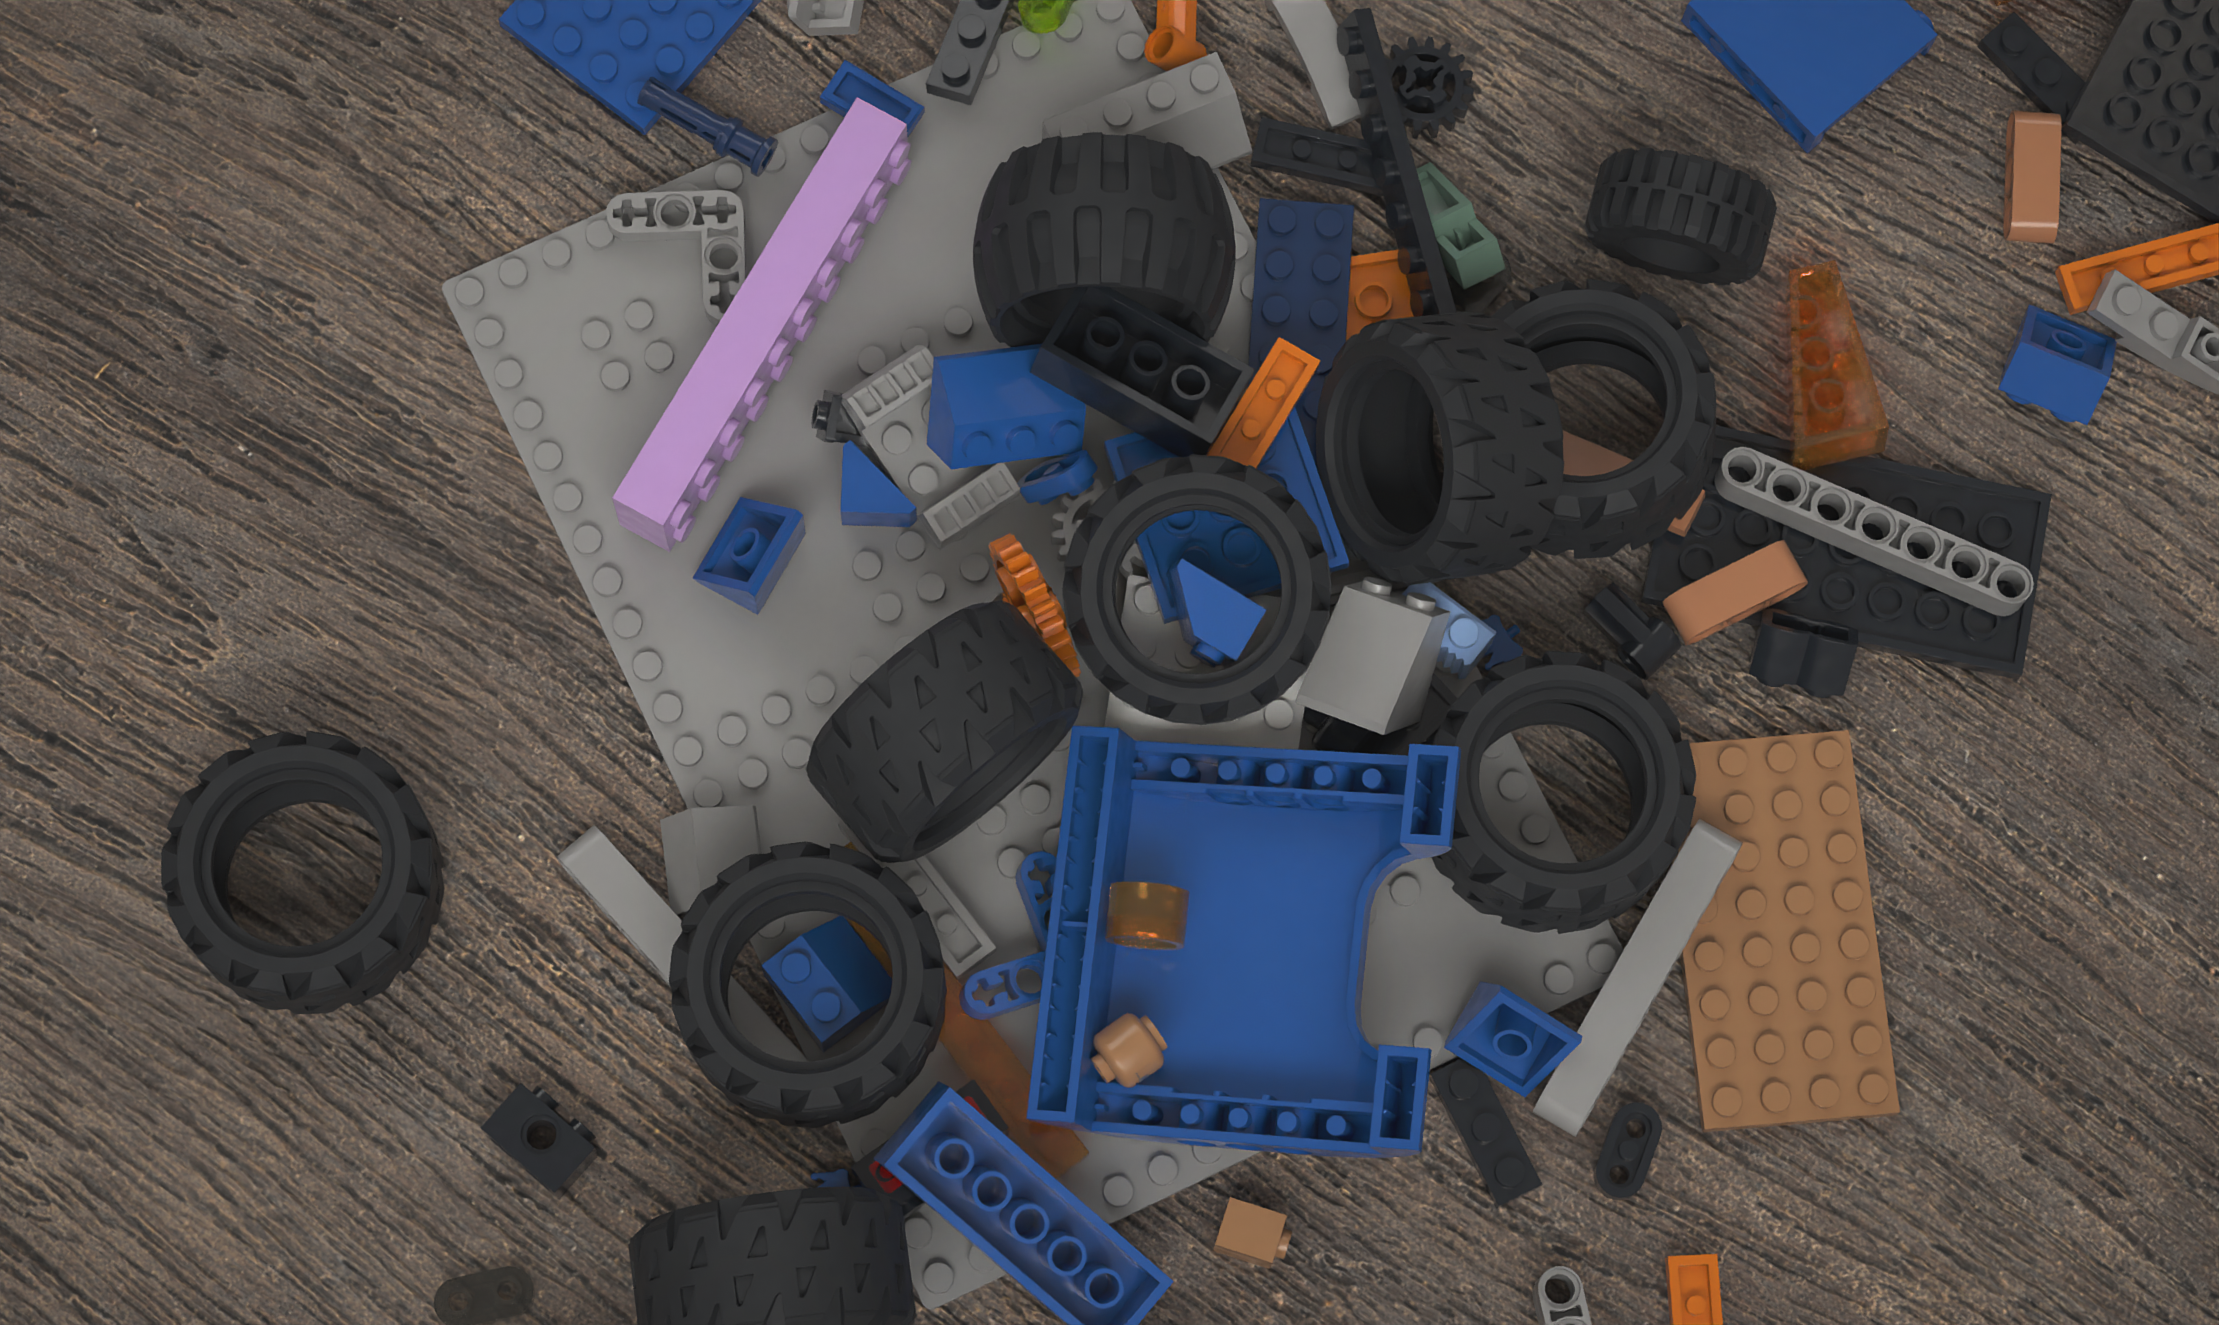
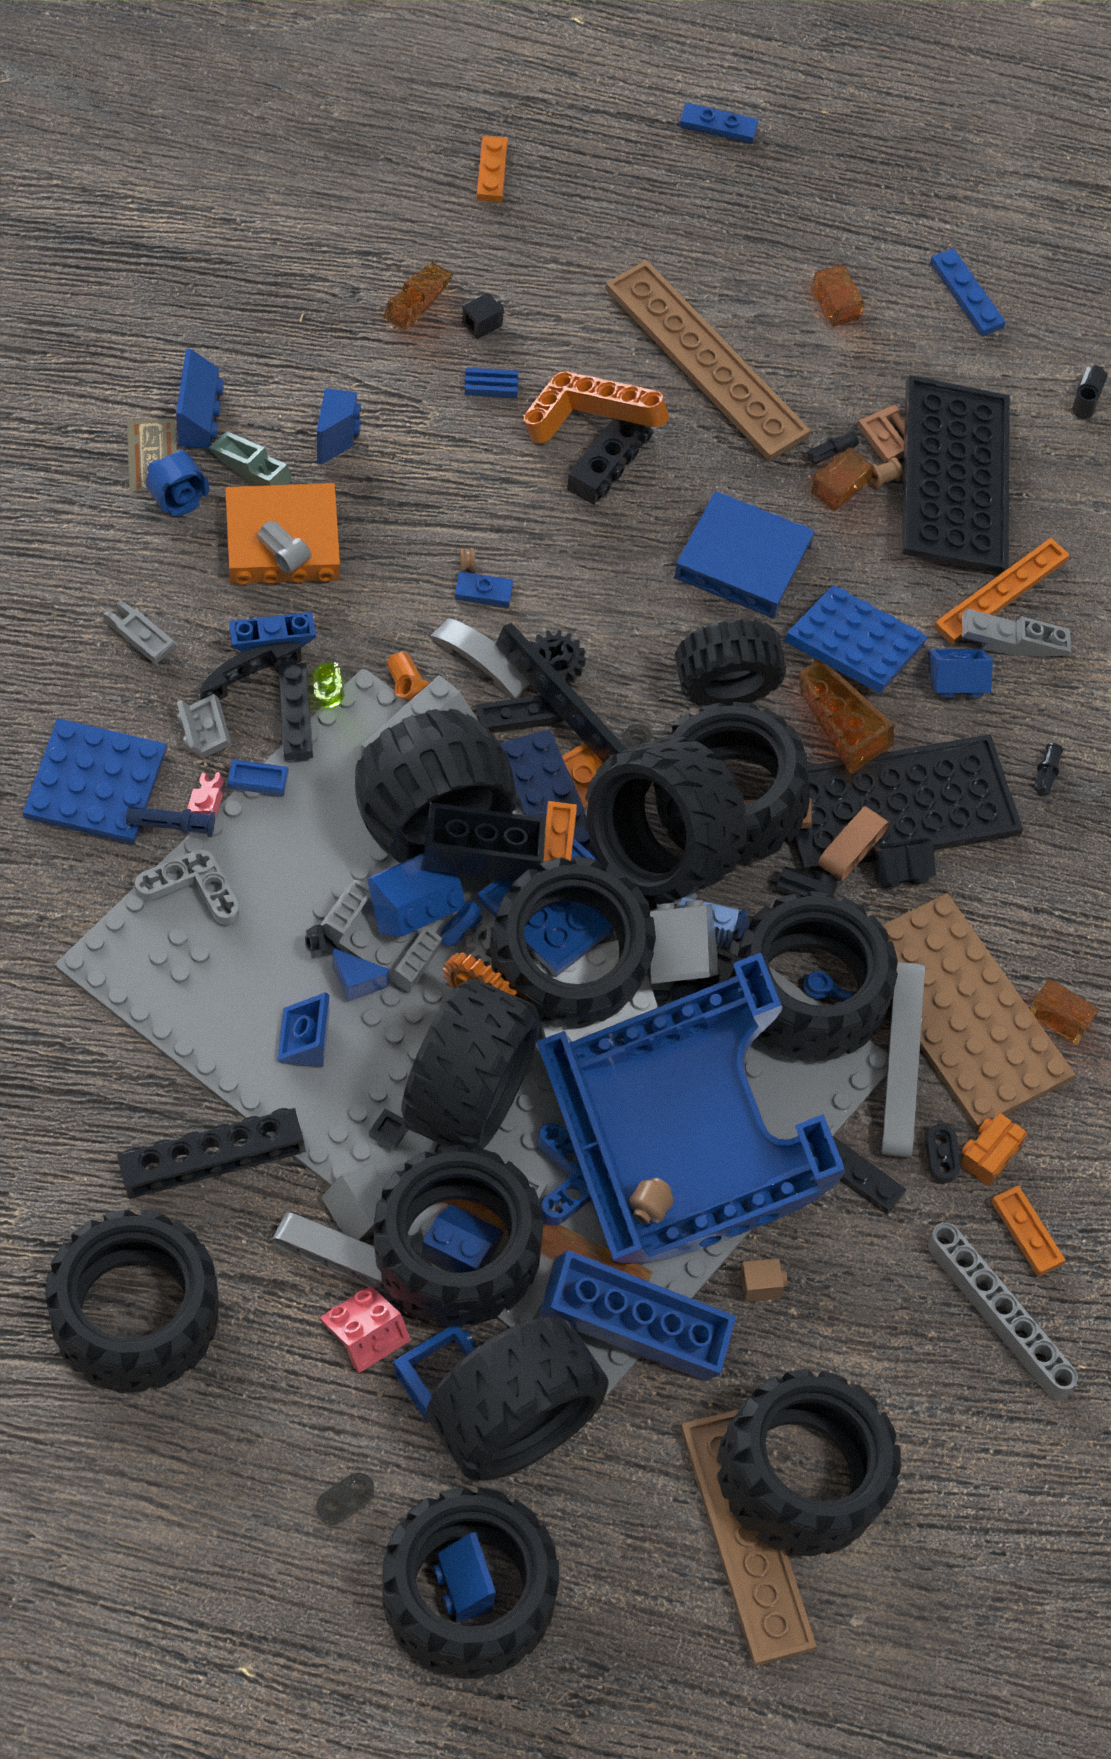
camera: 25 degrees left, 15 degrees down
(552, 1167) = (347, 1410): black brick -> none
(631, 1051) = (367, 1327): none -> coral bracket
(646, 715) = (201, 1165): none -> black brick
(657, 1161) = (407, 1375): none -> blue window
(763, 326) = (257, 910): lavender brick -> none
(782, 108) = (208, 797): none -> coral plate
(793, 758) = (388, 1129): none -> black plate
(1147, 915) = (627, 1124): clear orange piece -> none
(1211, 614) = (583, 951): blue slope -> none
(1463, 241) = (624, 724): sand green slope -> none
(1510, 1038) = (854, 1114): blue slope -> none
(1572, 799) = (820, 985): none -> blue plate
(1708, 1177) = (993, 1148): none -> orange brick
(1896, 528) = (920, 777): light grey beam -> none
(1912, 247) = (856, 639): none -> blue plate
(1931, 1003) = (1063, 1011): none -> clear orange brick
(2032, 177) = (898, 584): nougat beam -> none
(2033, 67) = (872, 534): black plate -> none
(2117, 588) = (1048, 768): none -> black axle

